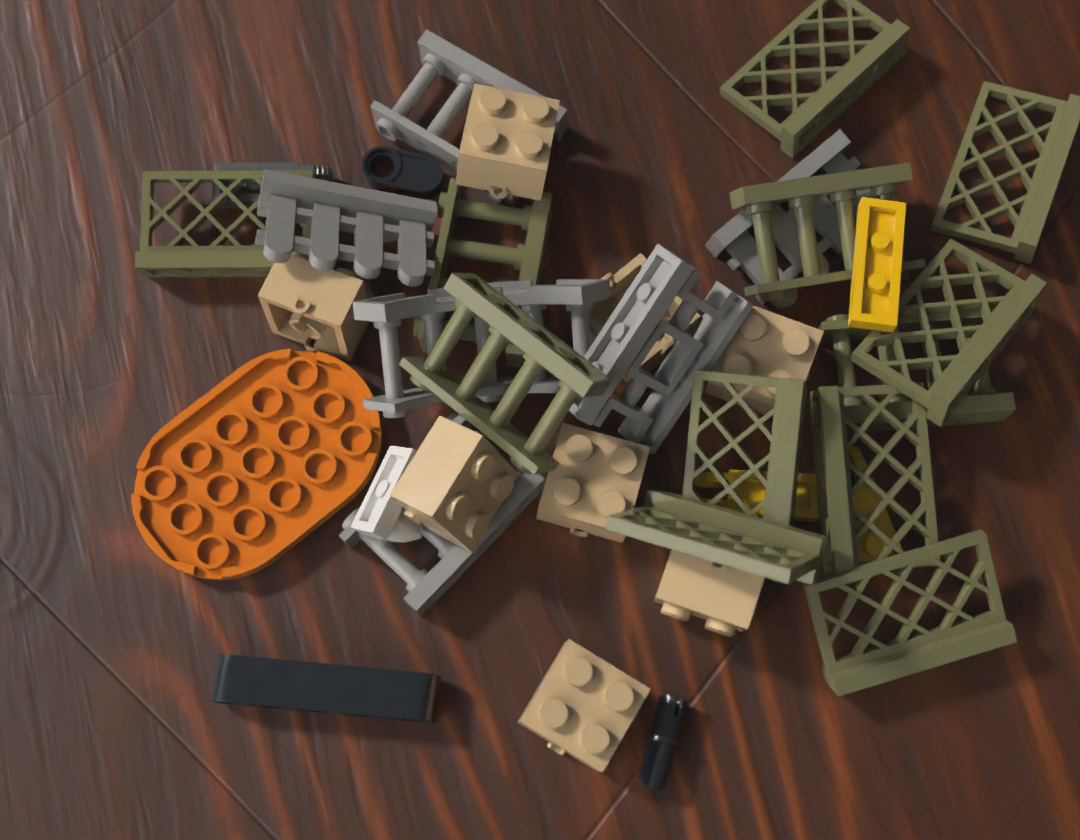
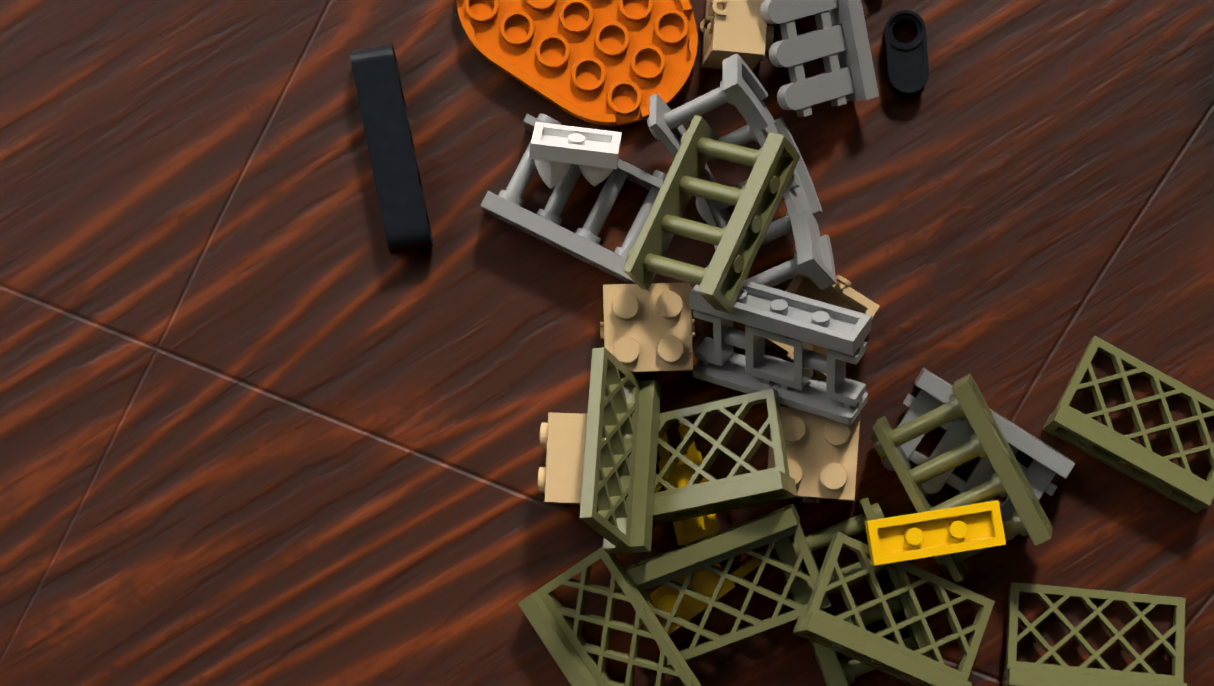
camera: 75 degrees right, 10 degrees up
(446, 59) = (1021, 88): light grey fence -> none
(455, 483) = (598, 202): tan brick -> none
(506, 142) = (952, 144): tan brick -> none
(526, 257) = (851, 199): olive fence -> none
(583, 706) = (442, 380): tan brick -> none
(662, 742) = (434, 460): black axle -> none

